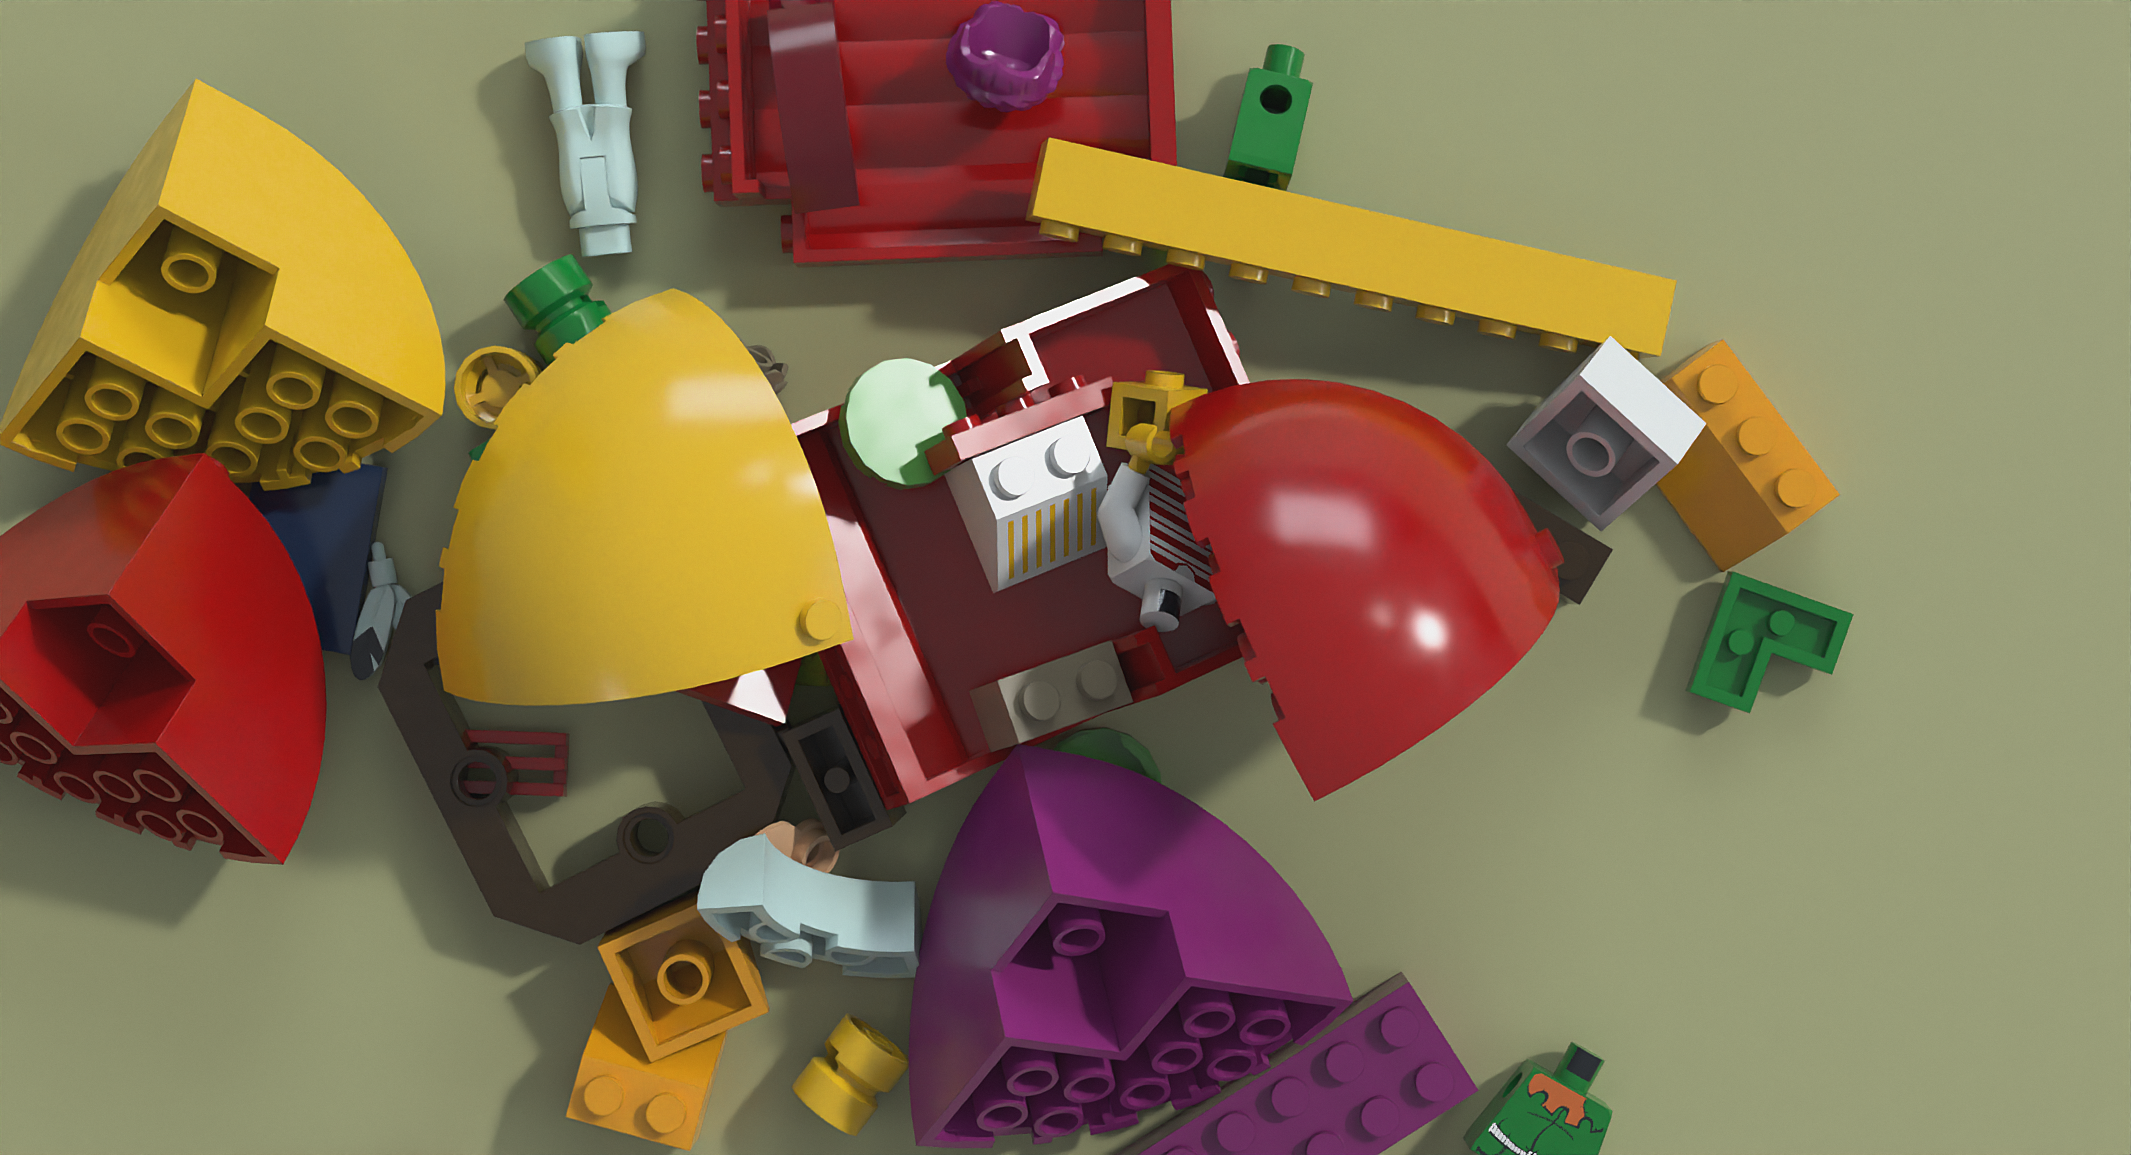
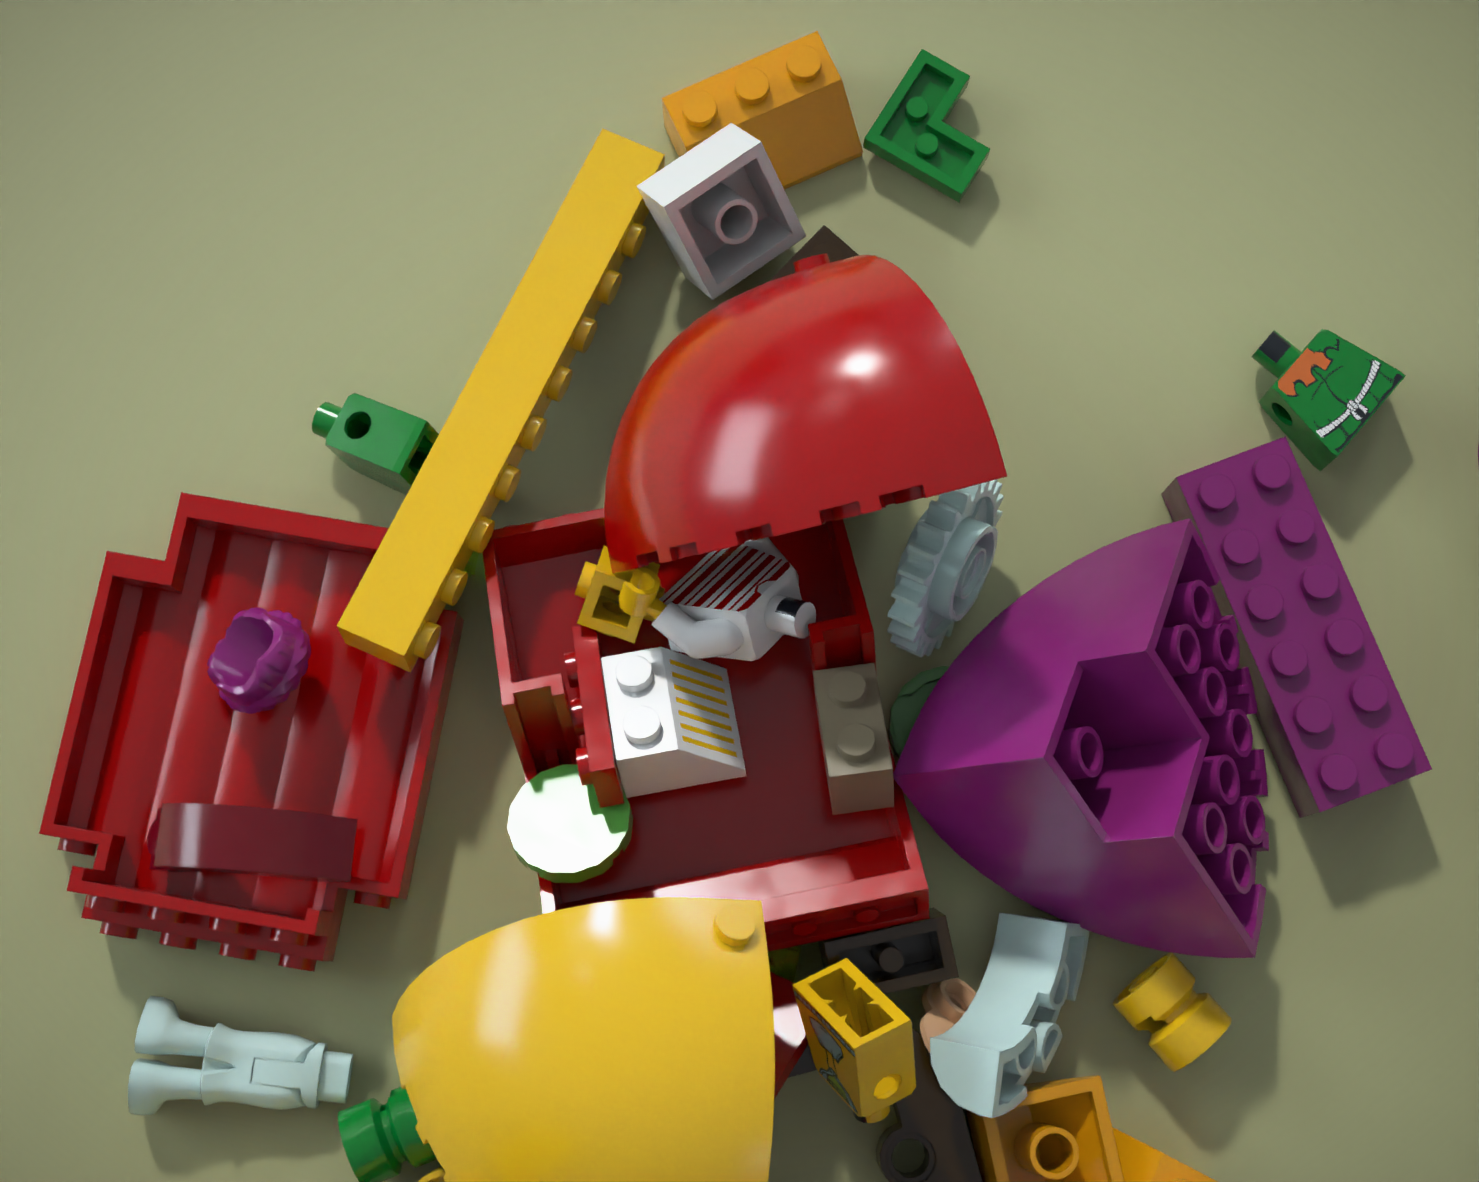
camera: 75 degrees left, 10 degrees down
(732, 783) = (857, 1039): none -> yellow torso
(1238, 754) = (944, 566): none -> light aqua gear

